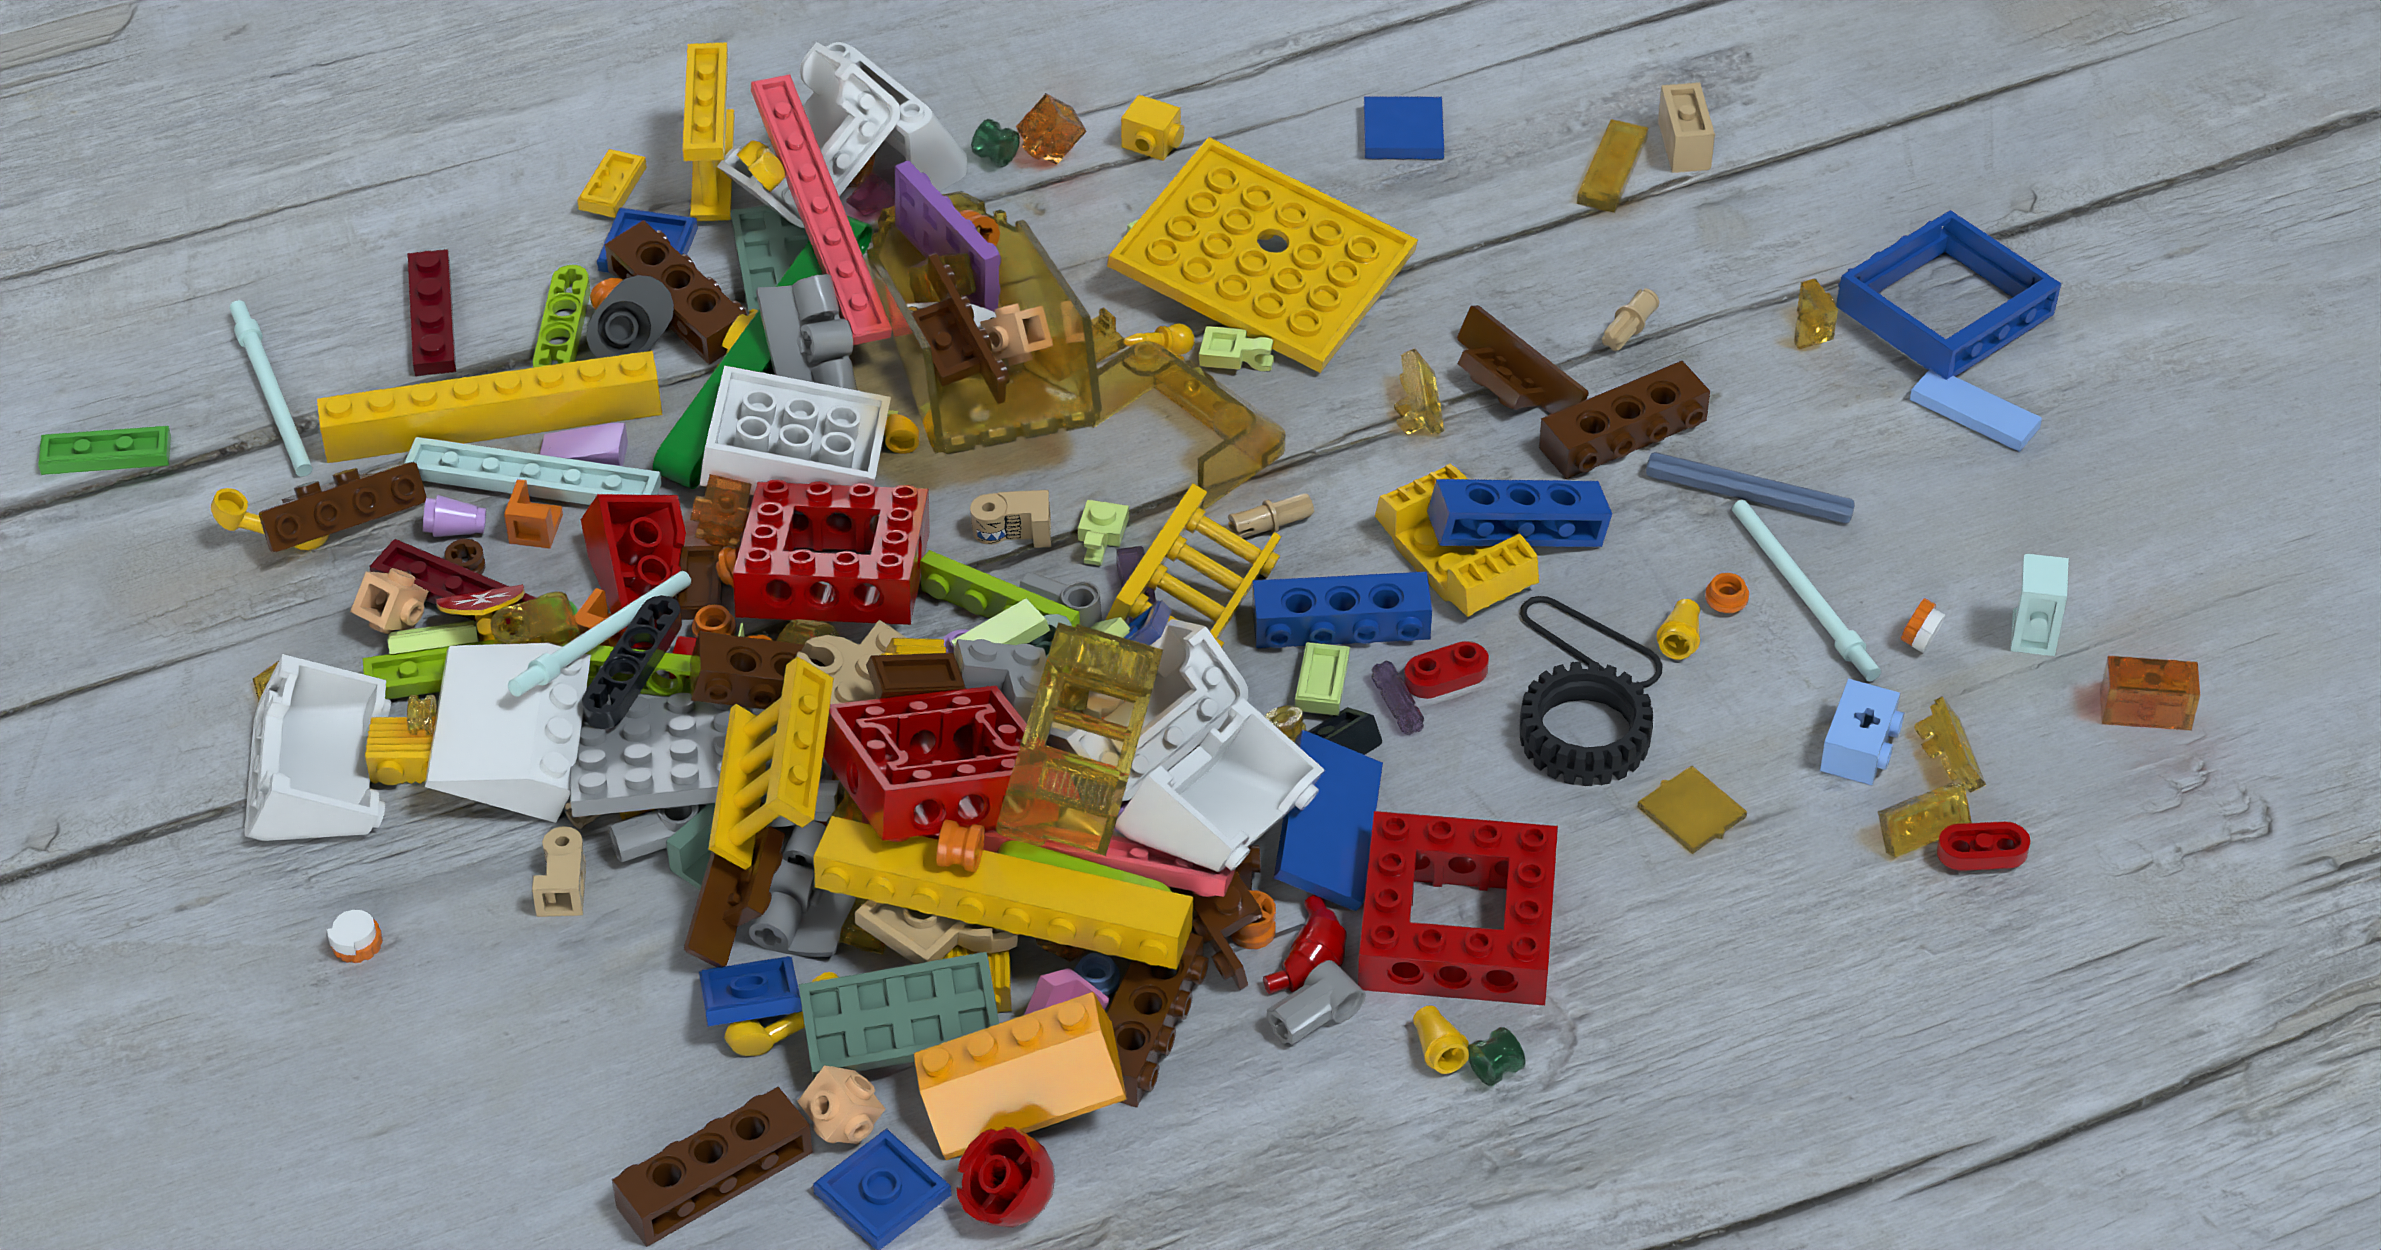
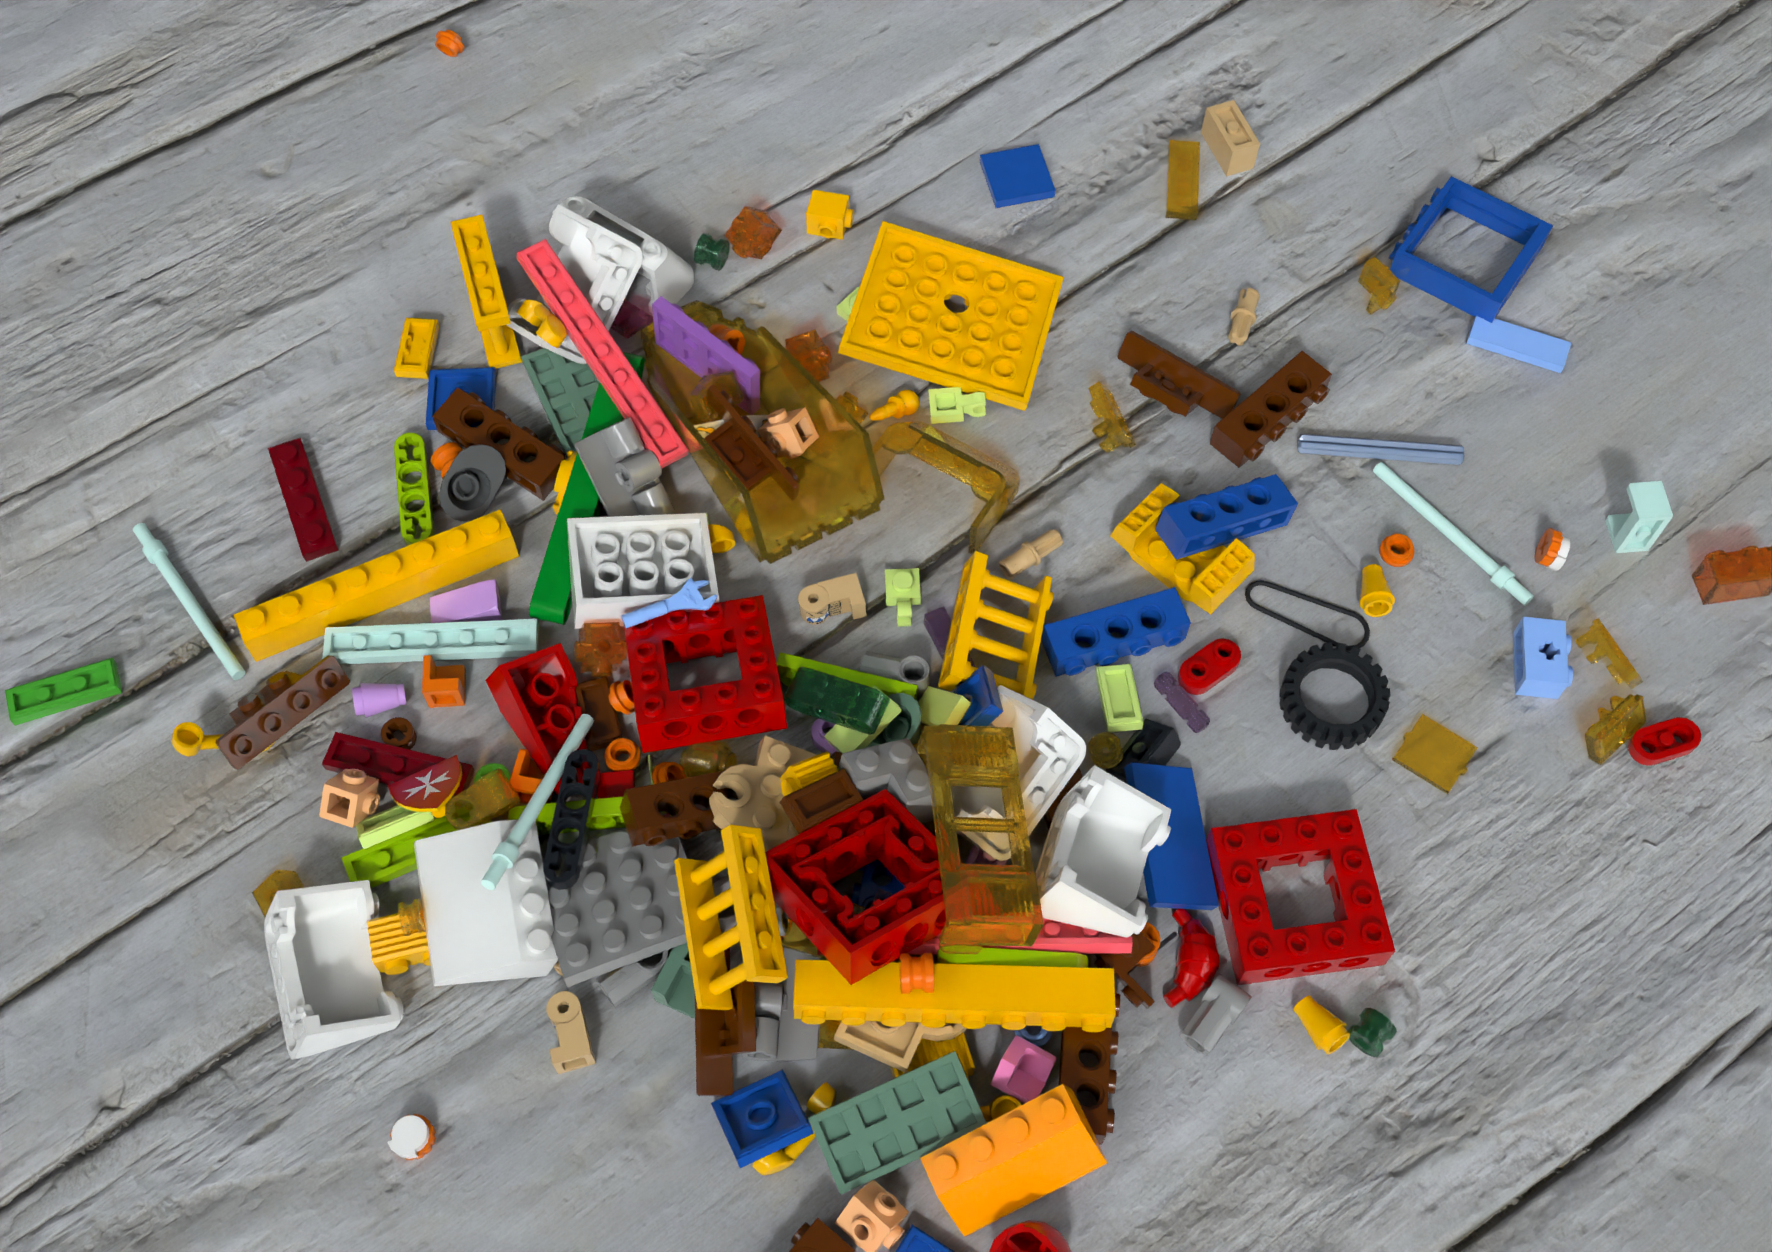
camera: 15 degrees left, 15 degrees up
(835, 469) = (686, 598): none -> light blue piece
(974, 601) = (836, 700): none -> clear green beam
(1076, 263) = (811, 353): none -> clear orange brick

